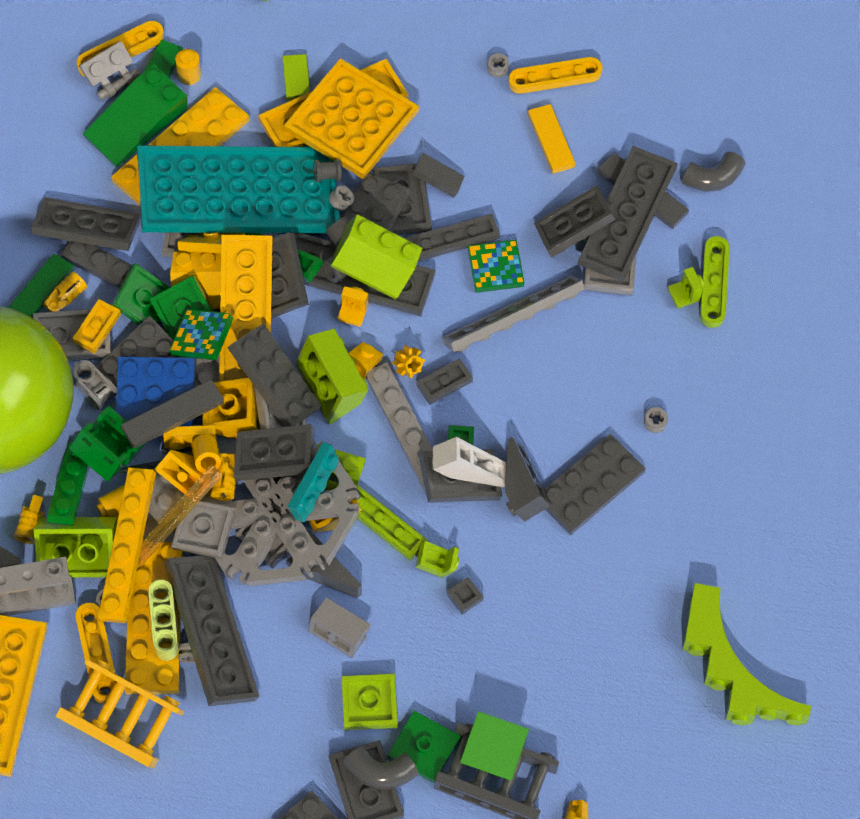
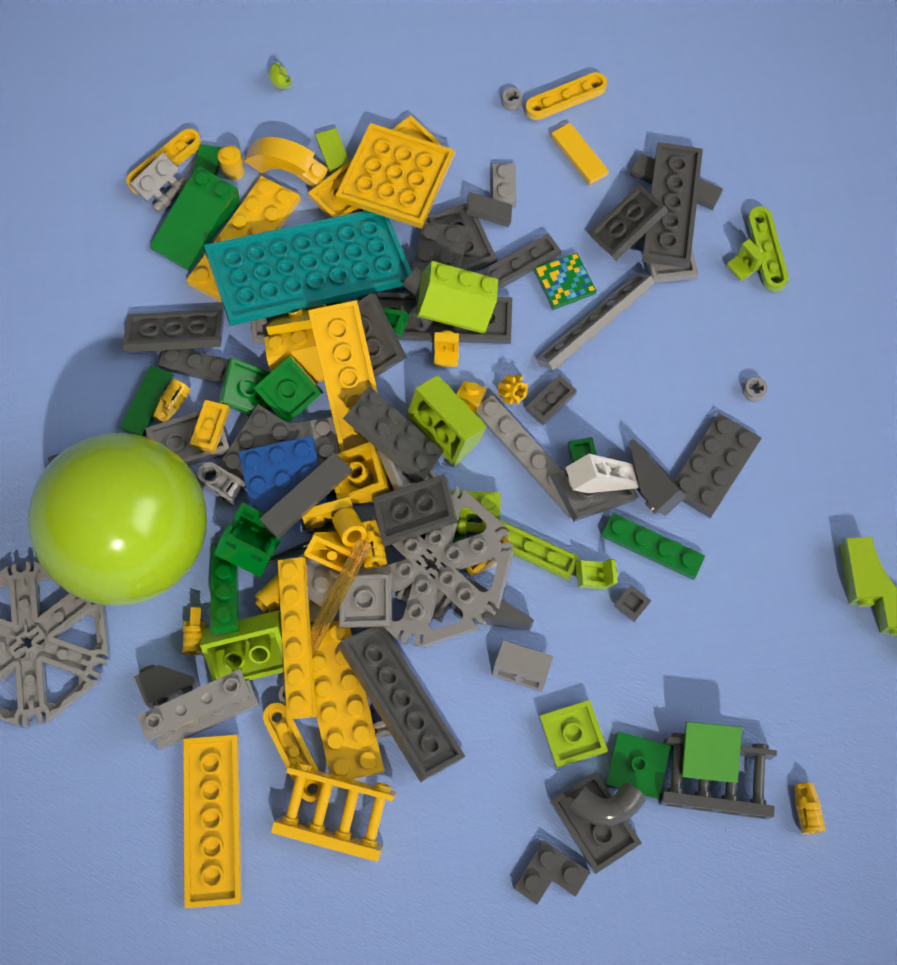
camera: 10 degrees left, 5 degrees up
(163, 608) = (348, 692): yellowish green beam -> none
(201, 334) = (313, 411): tile -> none
(243, 71) = (286, 155): none -> yellow arch
(313, 482) = (463, 531): teal plate -> none
(327, 170) = (387, 228): dark grey bush -> none
(341, 198) = (407, 250): light grey bush -> none
(463, 152) = (504, 183): none -> light grey plate
(503, 547) = (653, 546): none -> green plate
(716, 177) = (737, 155): dark grey cylinder -> none

